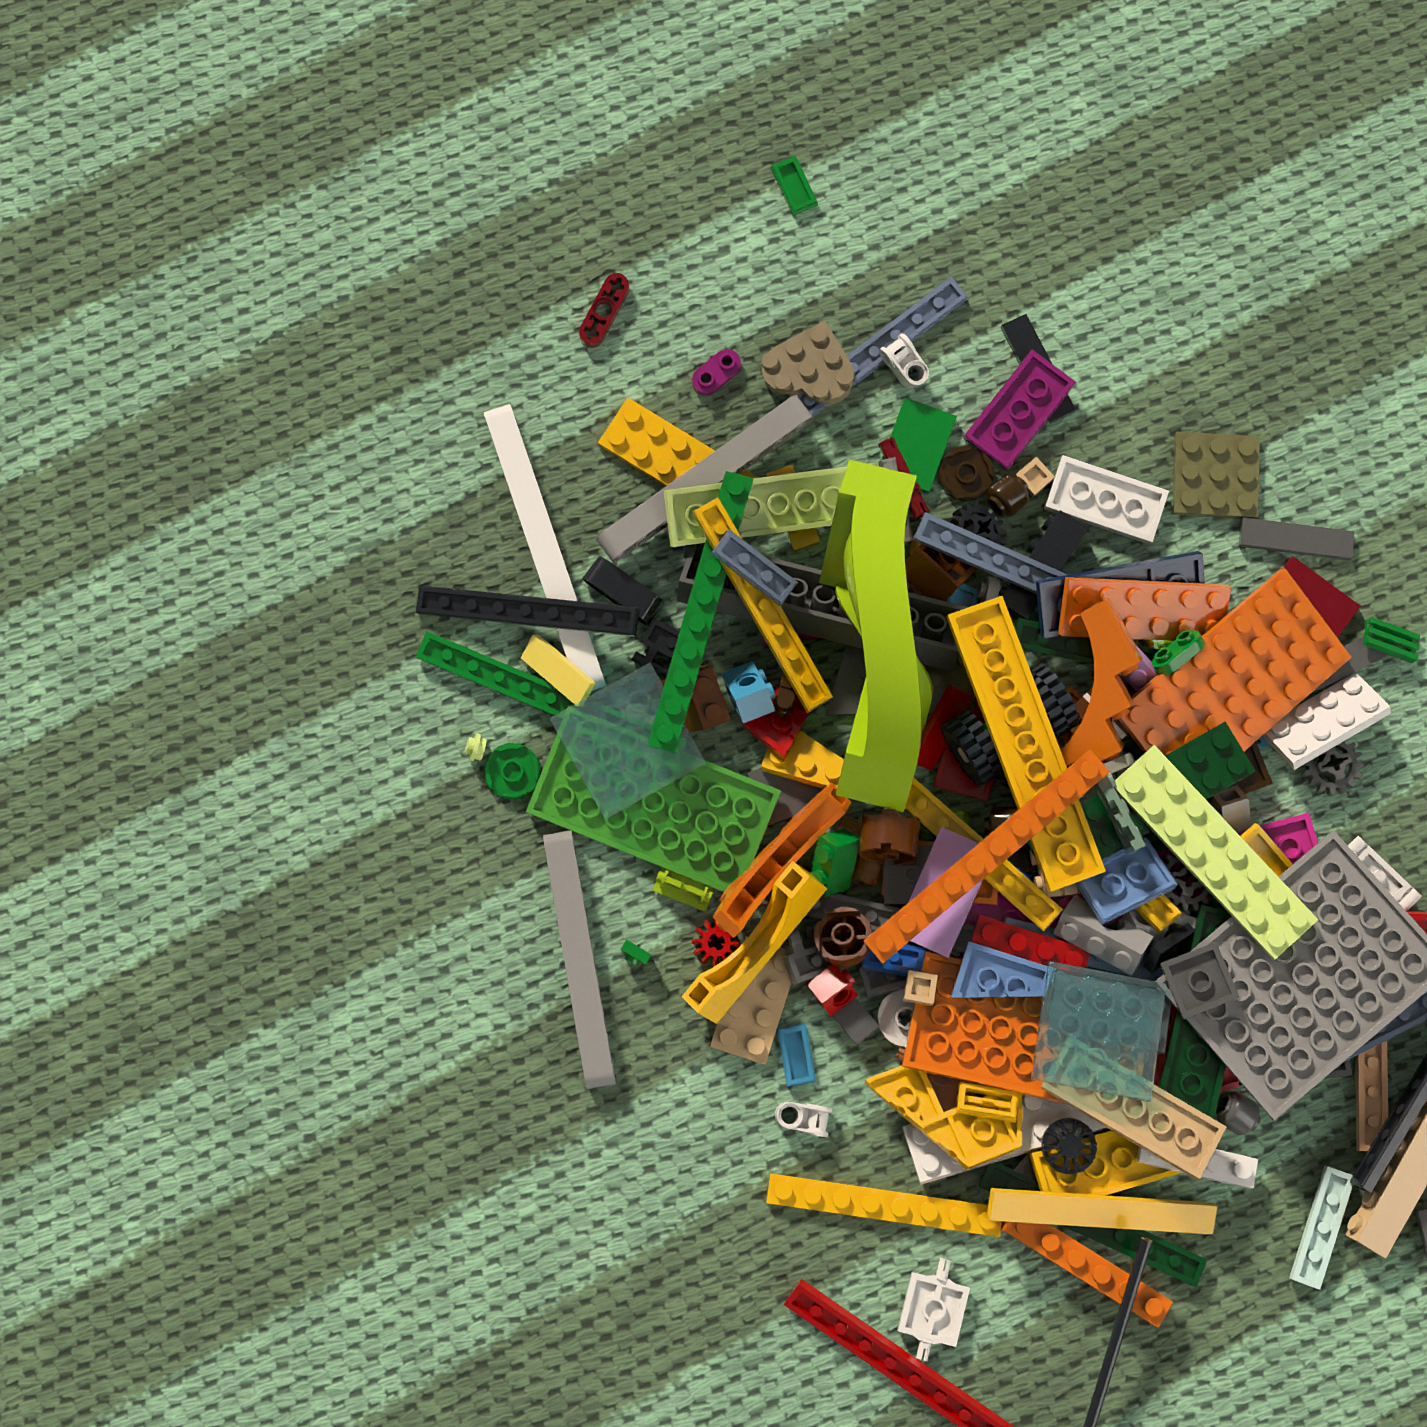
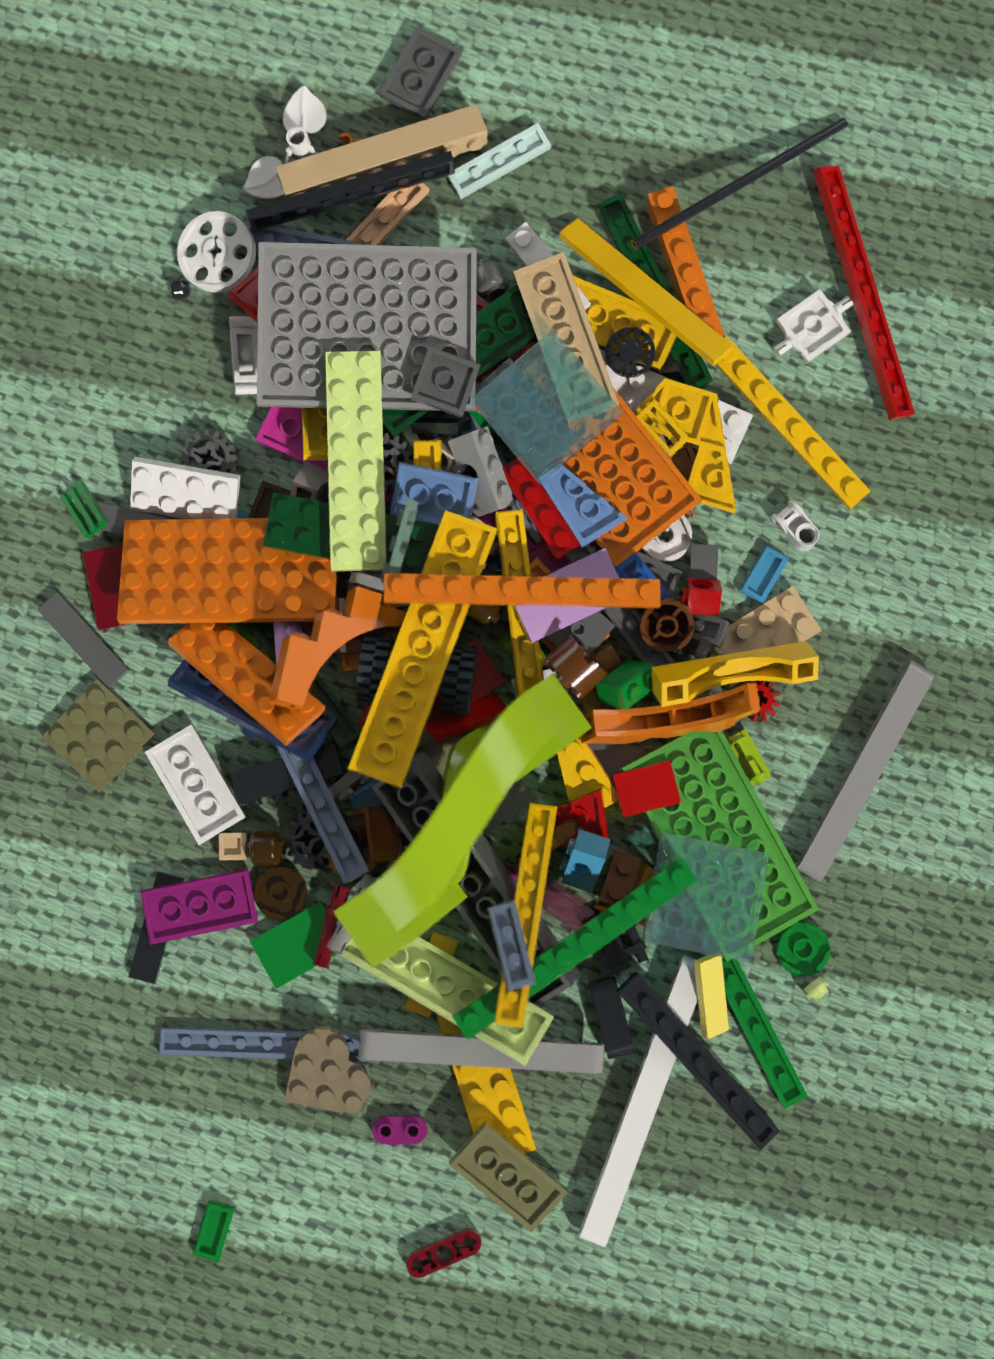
camera: 135 degrees left, 5 degrees up
(603, 403) = (508, 1176): none -> olive plate
(635, 954) = (822, 739): green plate -> none
(733, 646) = (565, 907): none -> clear pink tile
(746, 790) = (646, 788): none -> red sticker
(903, 360) = (253, 1017): white piece -> none
(920, 987) = (644, 542): tan plate -> none
(1178, 652) = (250, 624): green plate -> none

